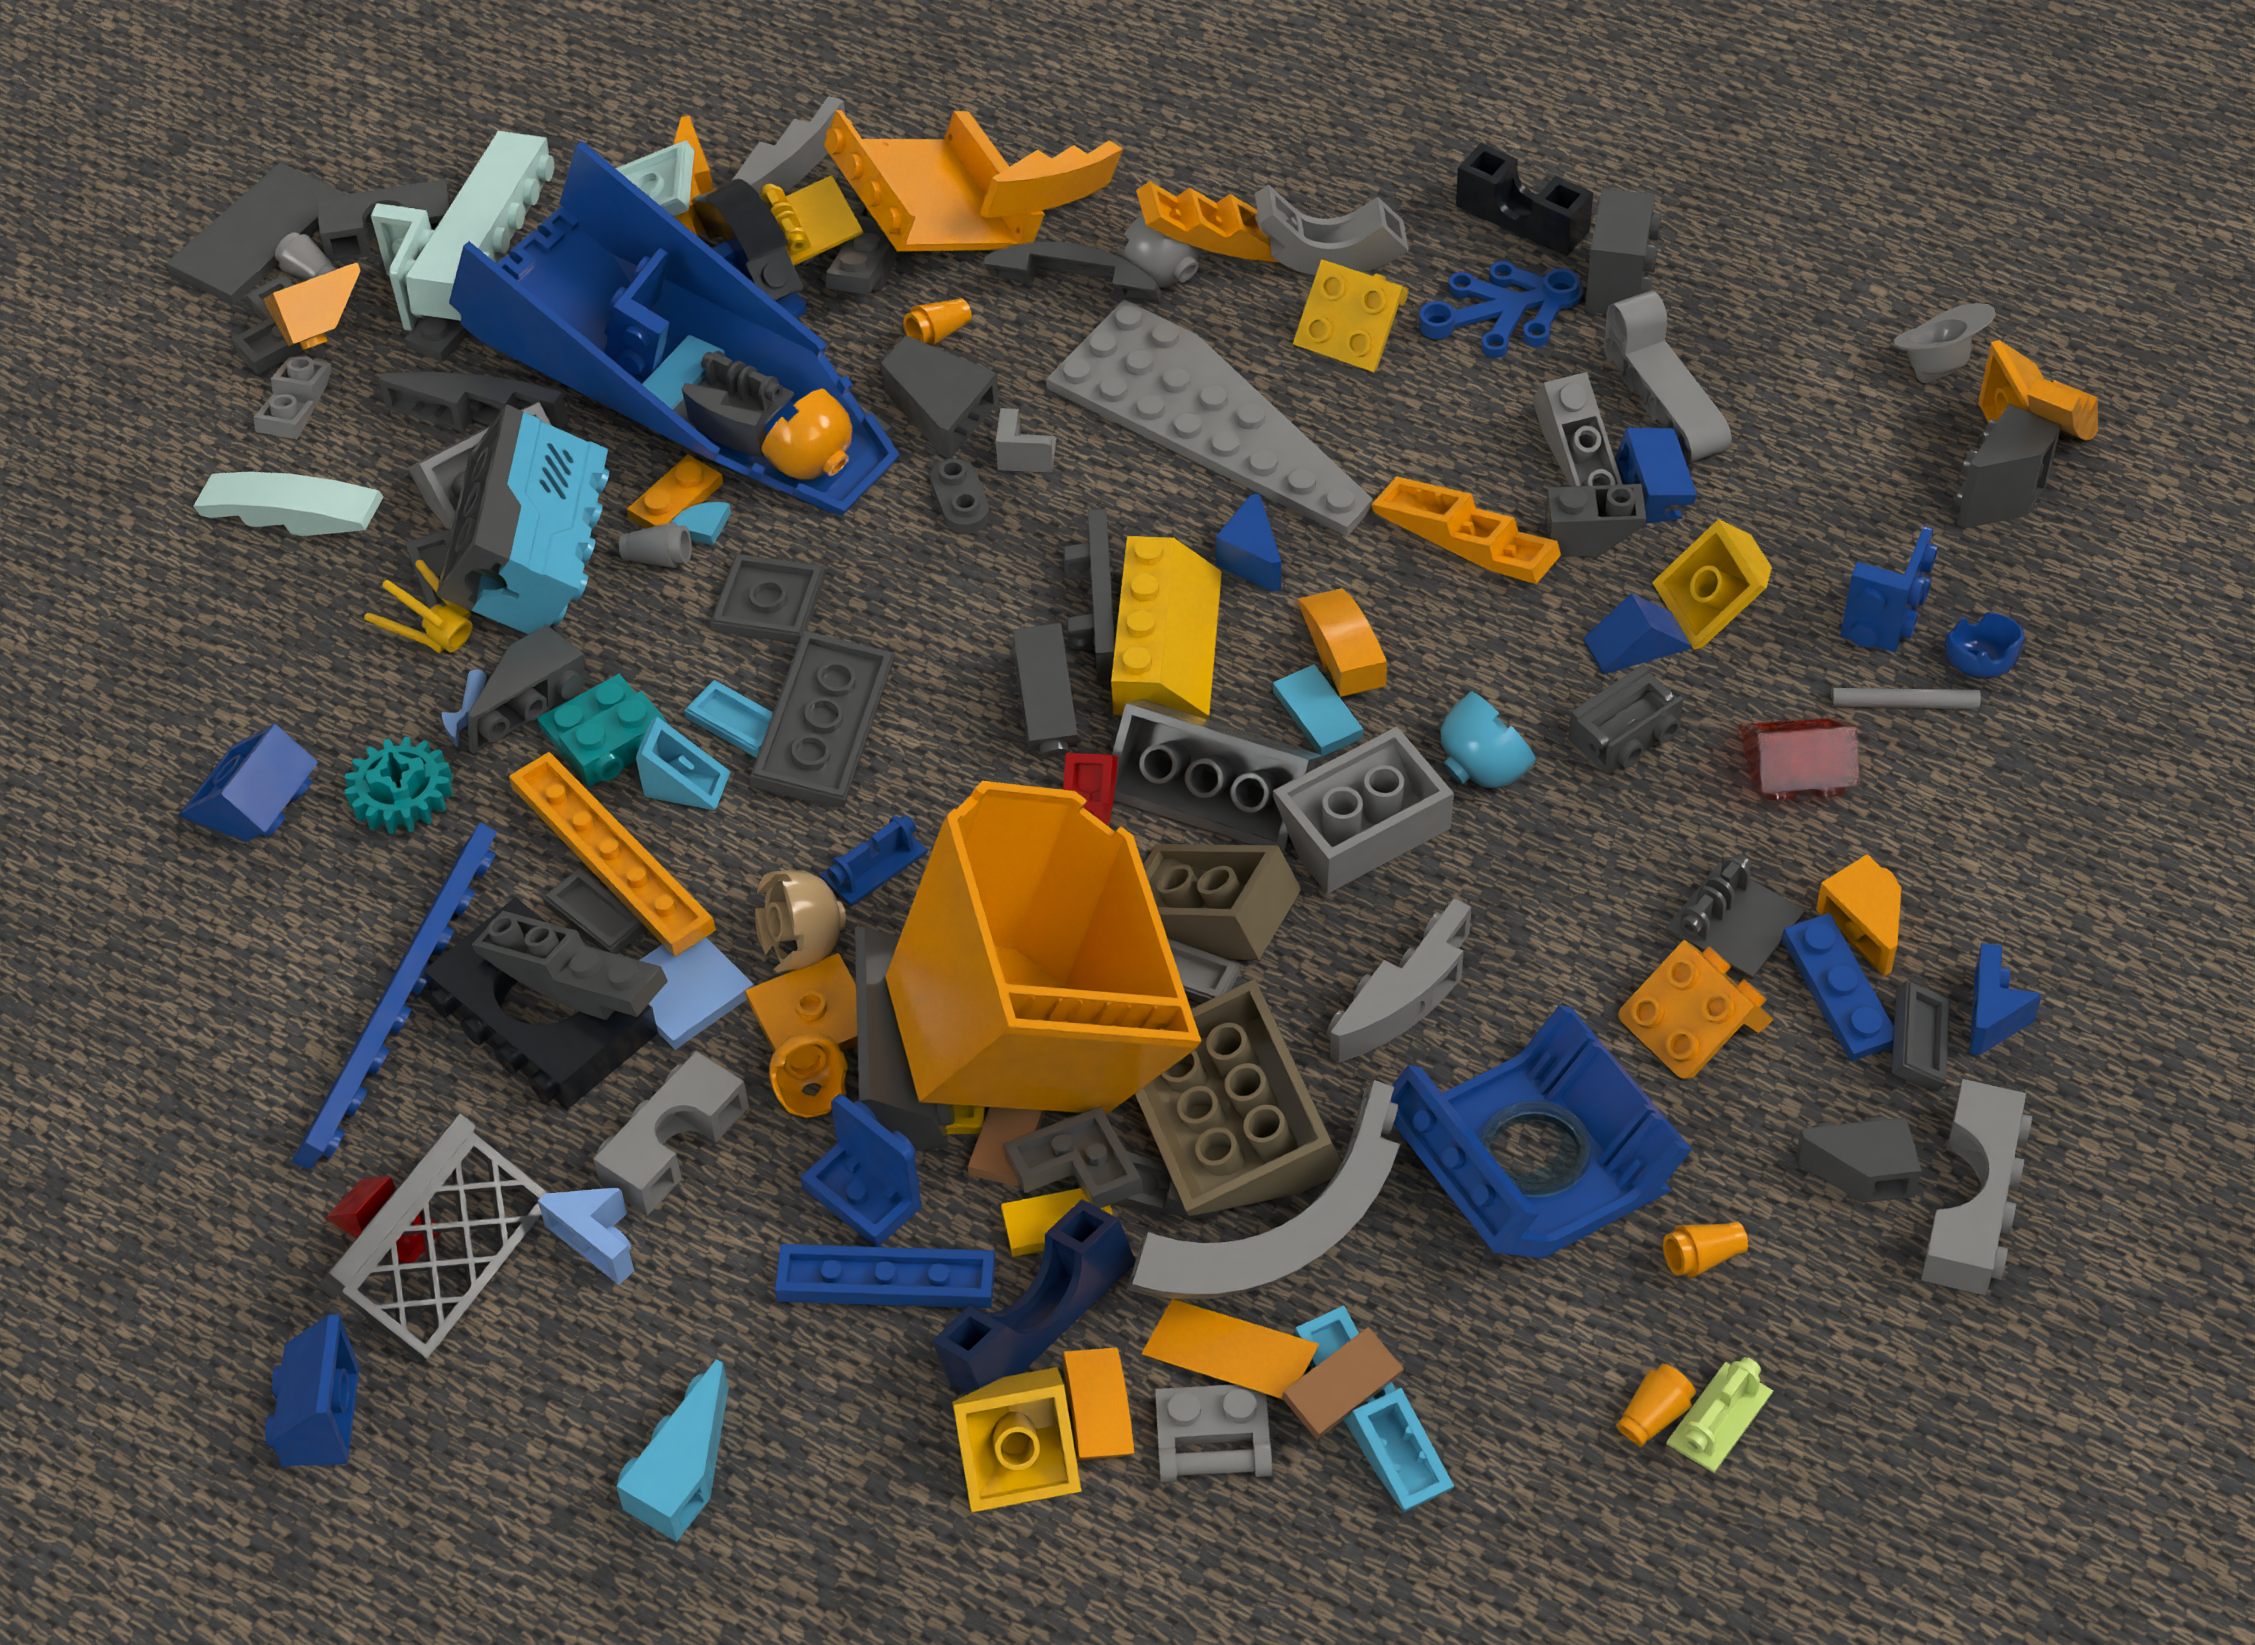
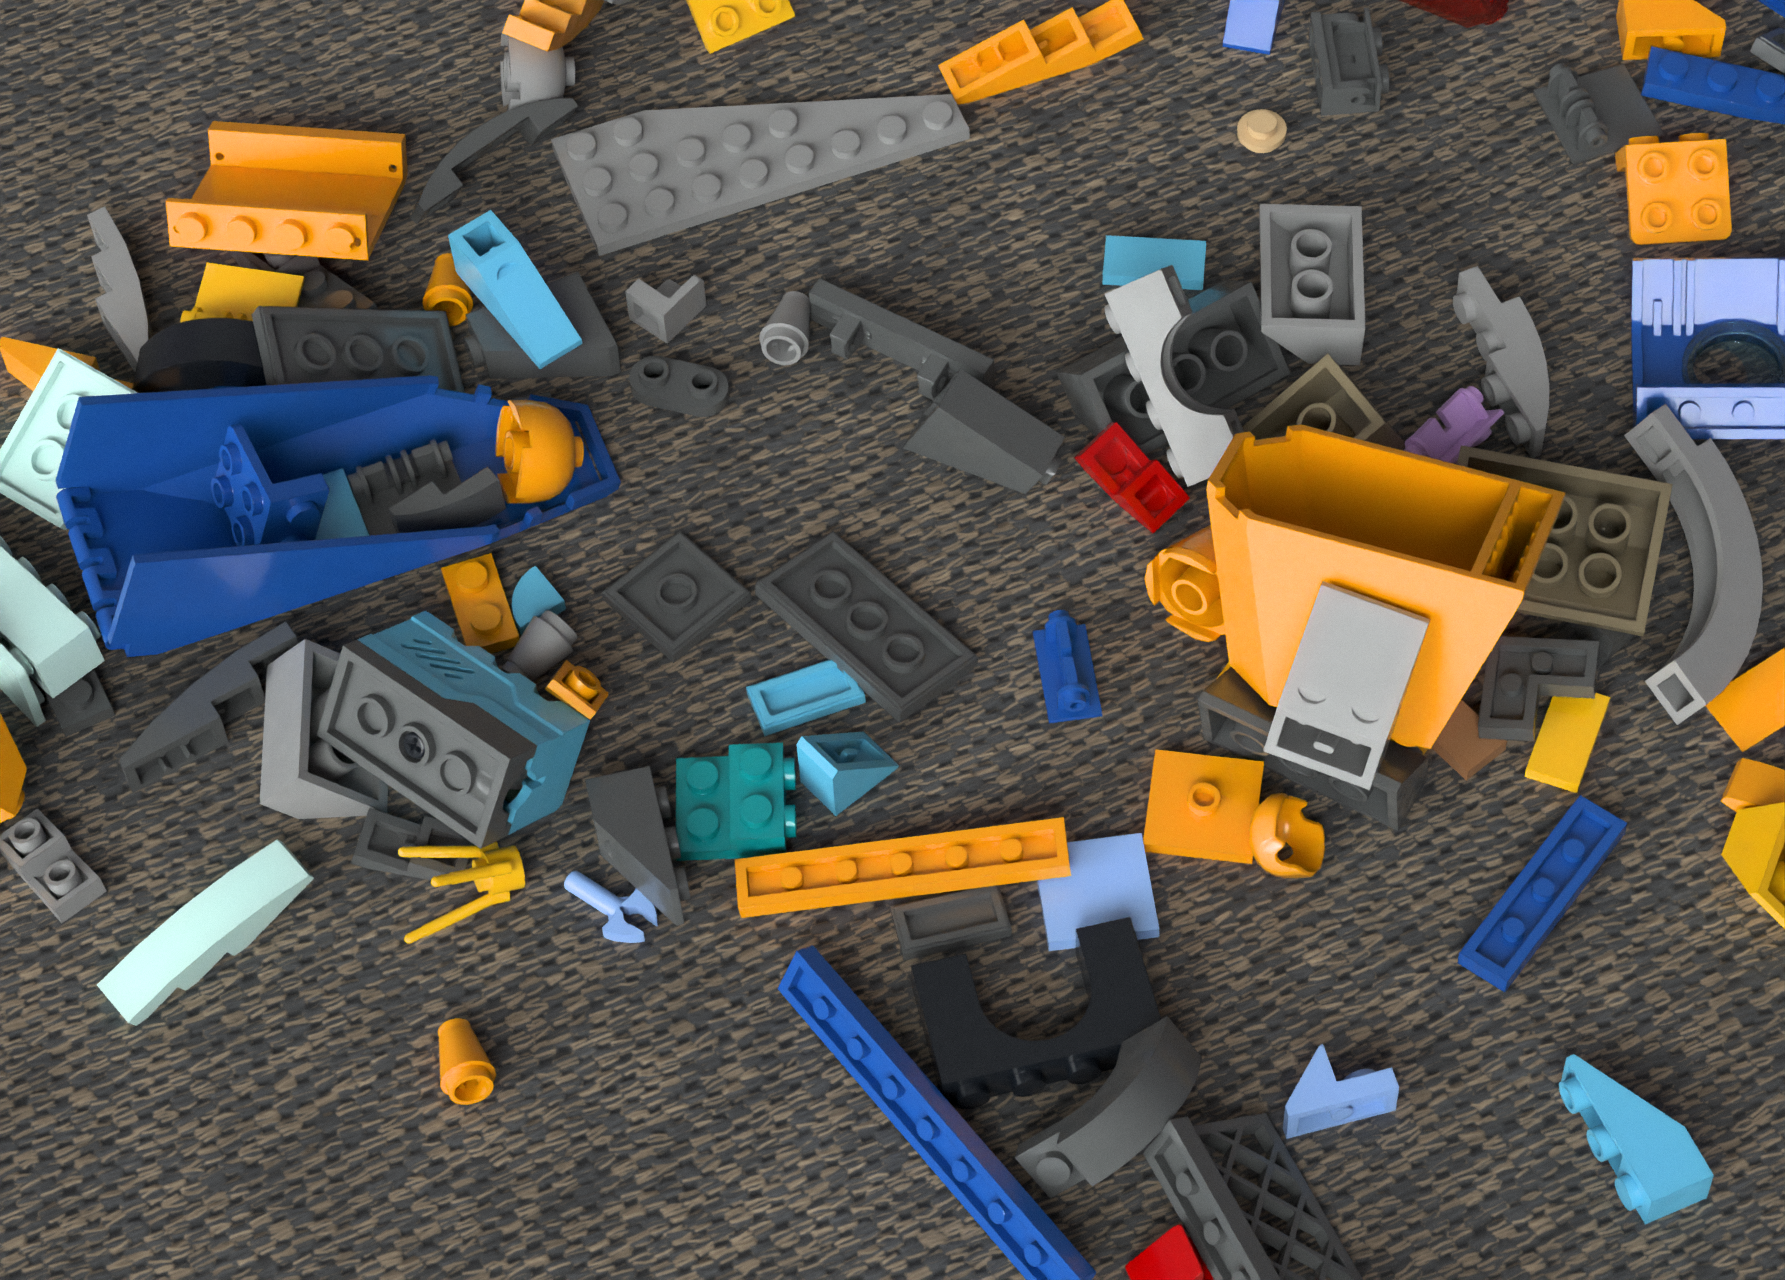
camera: 55 degrees left, 5 degrees up
(252, 785) = (562, 1138): blue slope -> none
(277, 698) = (463, 1063): none -> light orange cone
(423, 781) = (676, 1014): teal gear -> none
(472, 1087) = (1121, 1118): none -> dark grey arch
(566, 970) = (1051, 958): dark grey slope -> none
(614, 577) = (577, 689): none -> light orange slope
(695, 1099) = (1282, 1020): light grey arch -> none
(800, 910) = (1098, 752): tan cylinder -> none
(817, 292) = (354, 345): none -> dark grey tile
(867, 1175) = (1437, 844): blue bracket -> none
(889, 995) = (1346, 685): none -> slope
(930, 337) = (512, 289): none -> medium azure slope
(1049, 182) = (376, 103): light orange slope -> none
(1057, 525) = (787, 330): none -> light grey cone
(1080, 1262) = (1664, 789): dark blue arch -> none
(1166, 627) = (983, 315): yellow slope -> none
(1188, 708) = (1149, 318): none -> arch
(1248, 546) = (939, 203): blue slope -> none
(1311, 987) = (1465, 425): none -> lavender hinge
(1344, 641) = (1098, 198): light orange slope -> none
(1482, 745) = (1302, 165): medium azure cylinder -> none
(1513, 704) = (1261, 130): none -> tan plate

